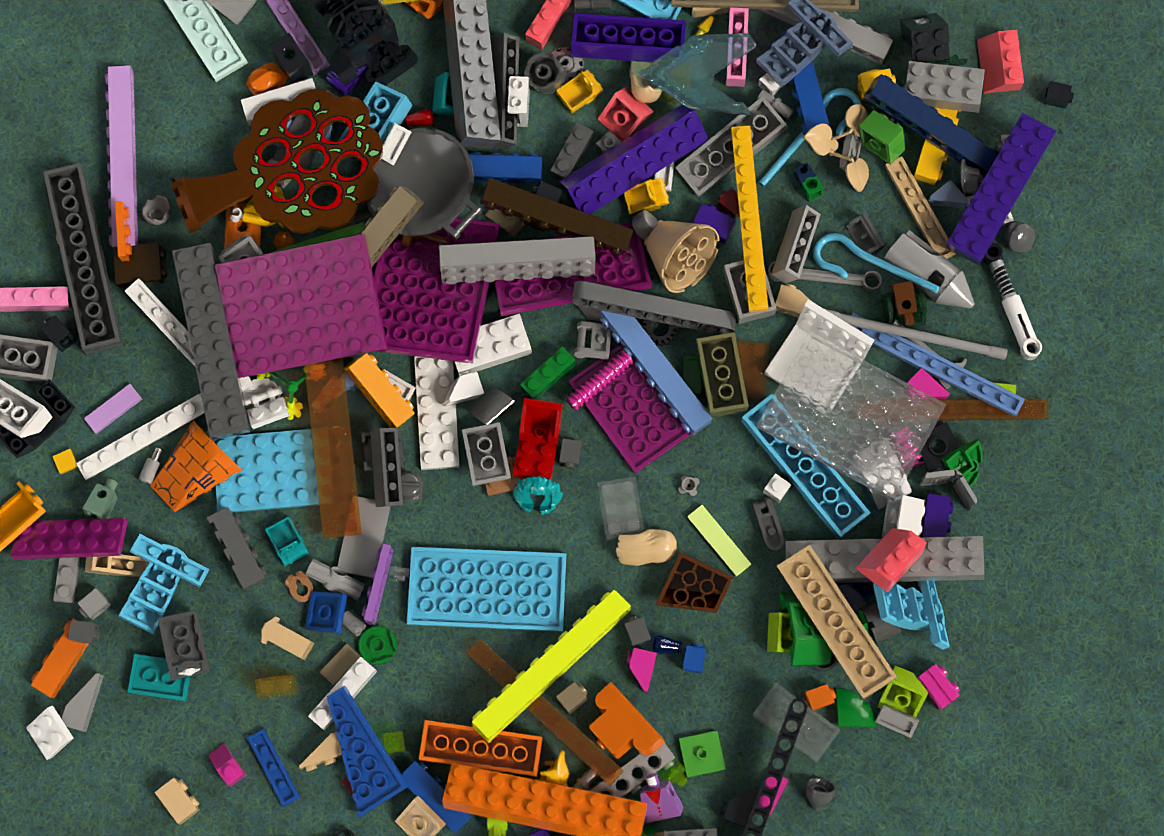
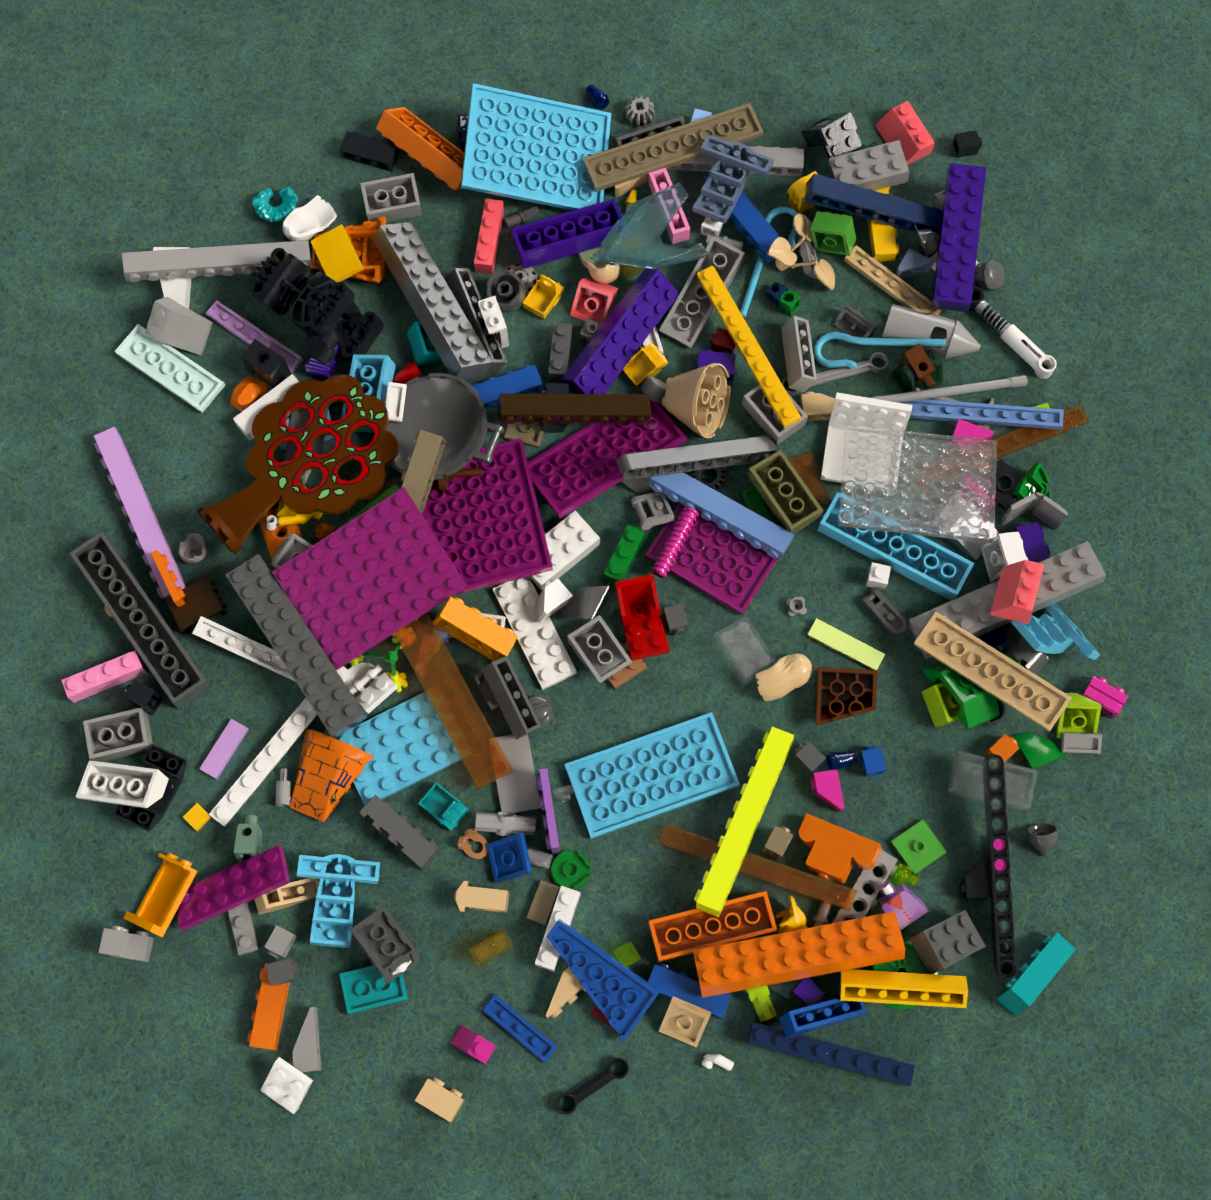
camera: 25 degrees left, 5 degrees down
(517, 260) = (554, 460): light grey brick -> none
(537, 486) = (658, 660): teal piece -> none

